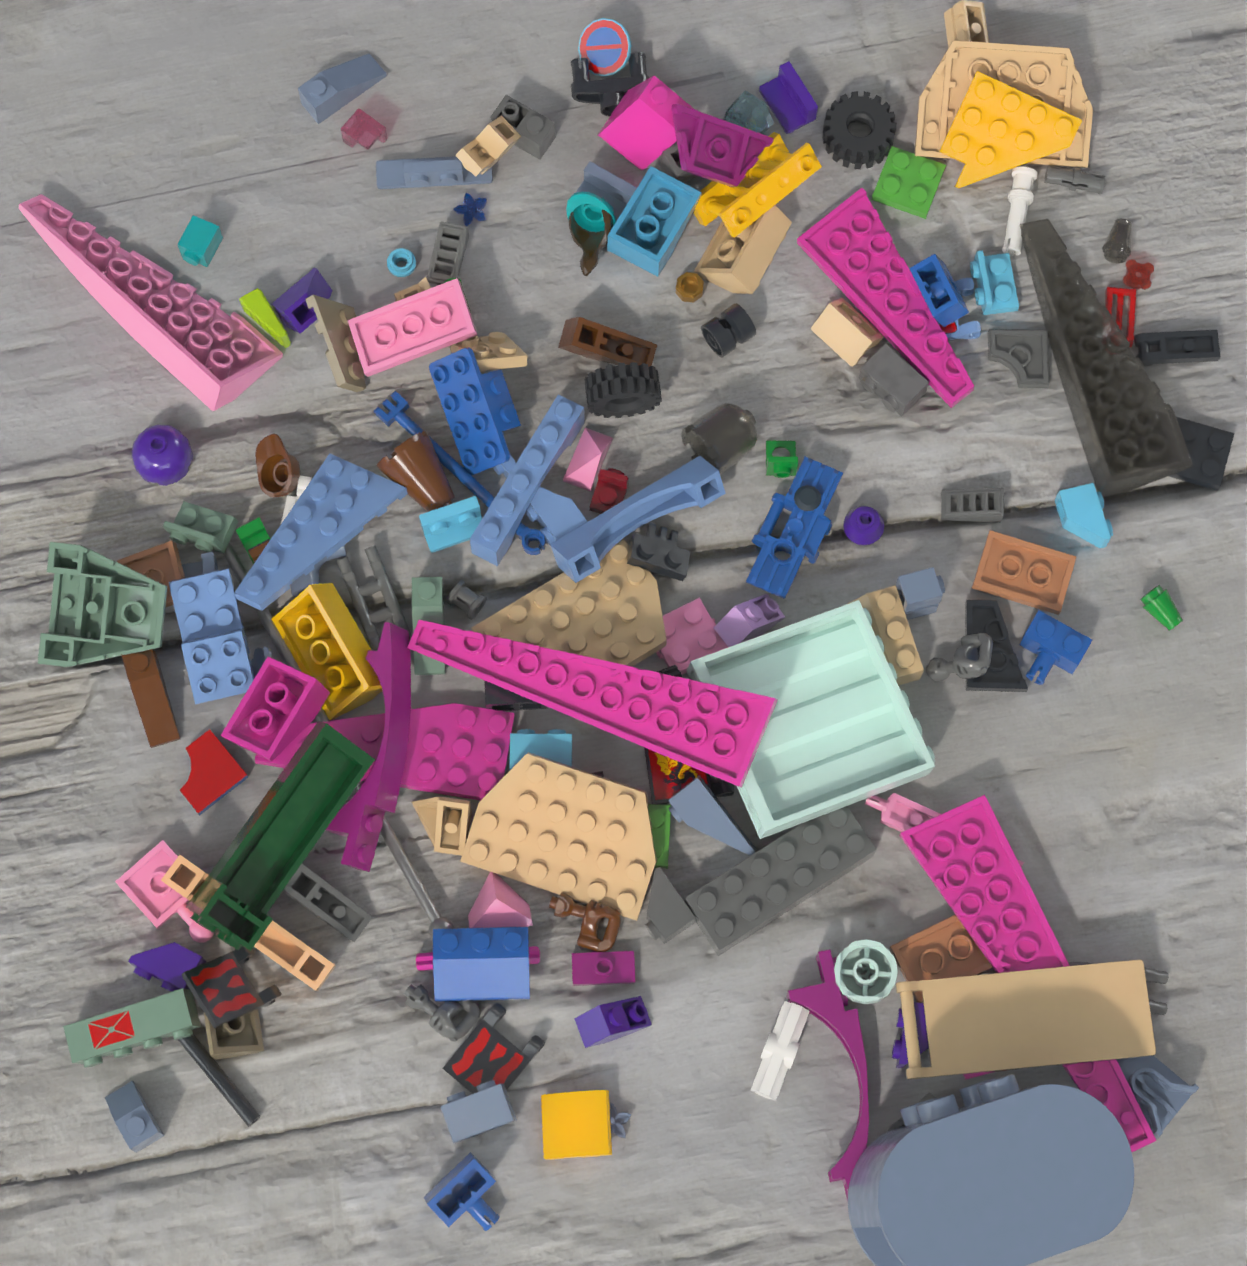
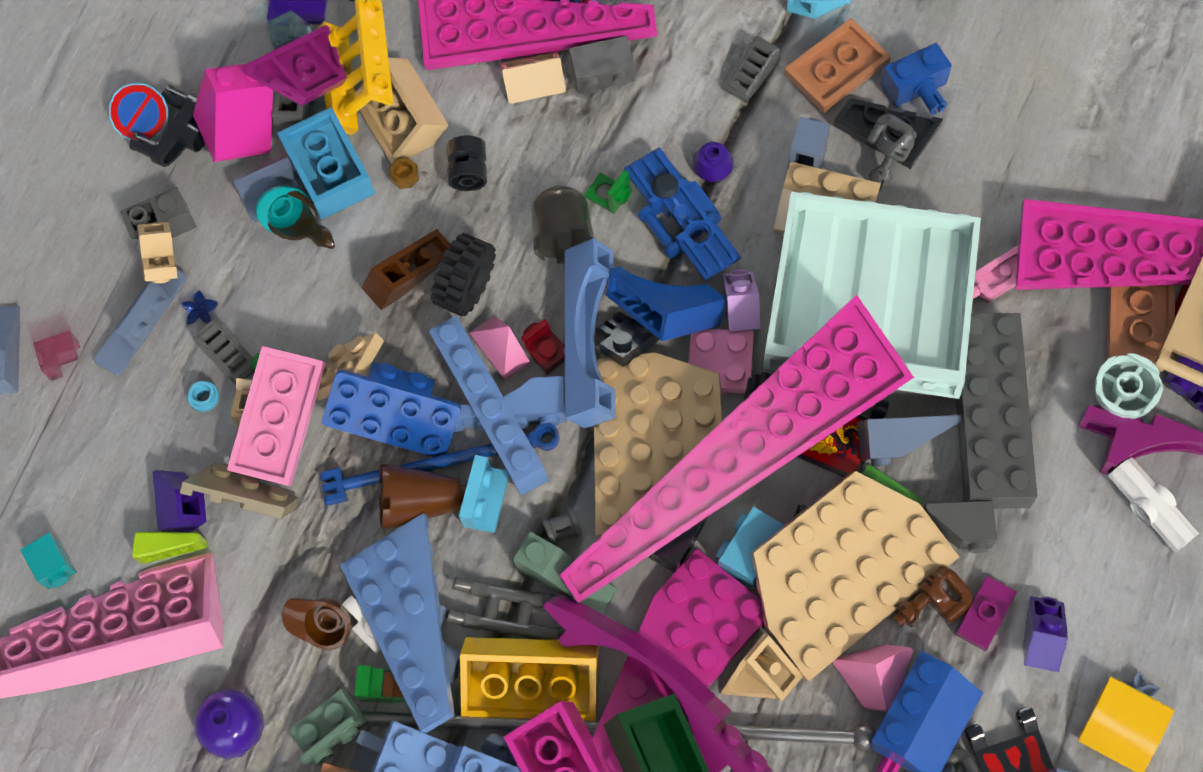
camera: 50 degrees left, 5 degrees down
(698, 569) = (665, 308): none -> blue arch

